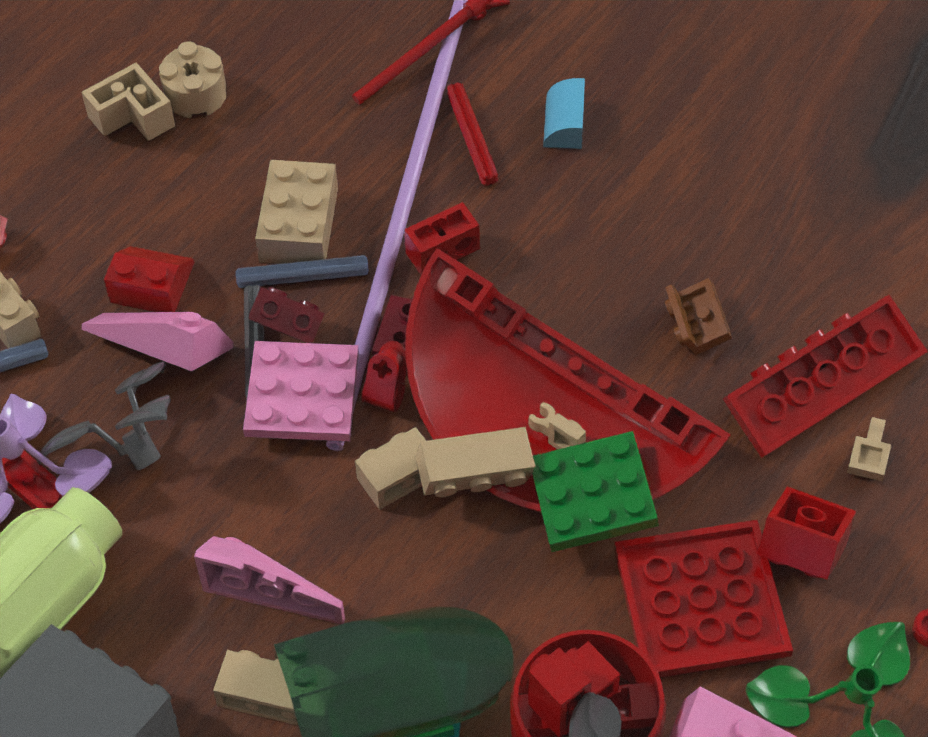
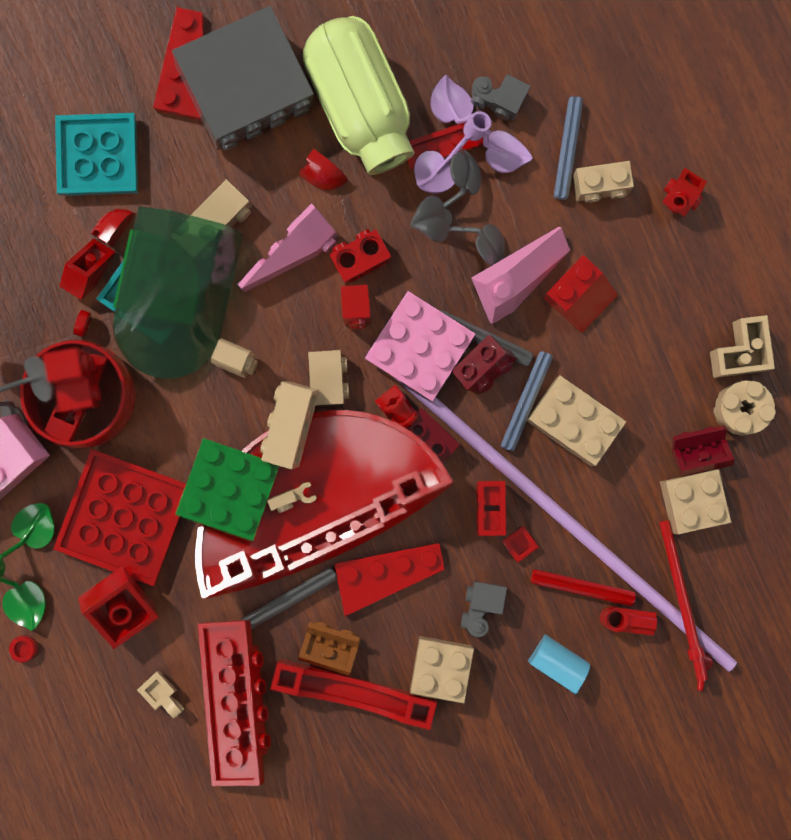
camera: 120 degrees right, 30 degrees up
(144, 604) = (322, 172): none -> red brick
(235, 499) = (363, 263): none -> red brick
(262, 95) = (702, 451): none -> dark red bracket
(292, 469) = (356, 306): none -> red brick
(318, 77) = (695, 502): none -> tan brick
(434, 565) = (234, 358): none -> tan brick
(473, 202) = (520, 544): none -> red tile
(480, 79) = (630, 620): none -> red piece
(546, 207) = (483, 598): none -> dark grey brick
(582, 311) = (378, 576): none -> red wing
(644, 205) = (441, 669): none -> tan brick
(671, 383) = (291, 597): none -> dark grey axle
(744, 308) = (355, 692): none -> red arch

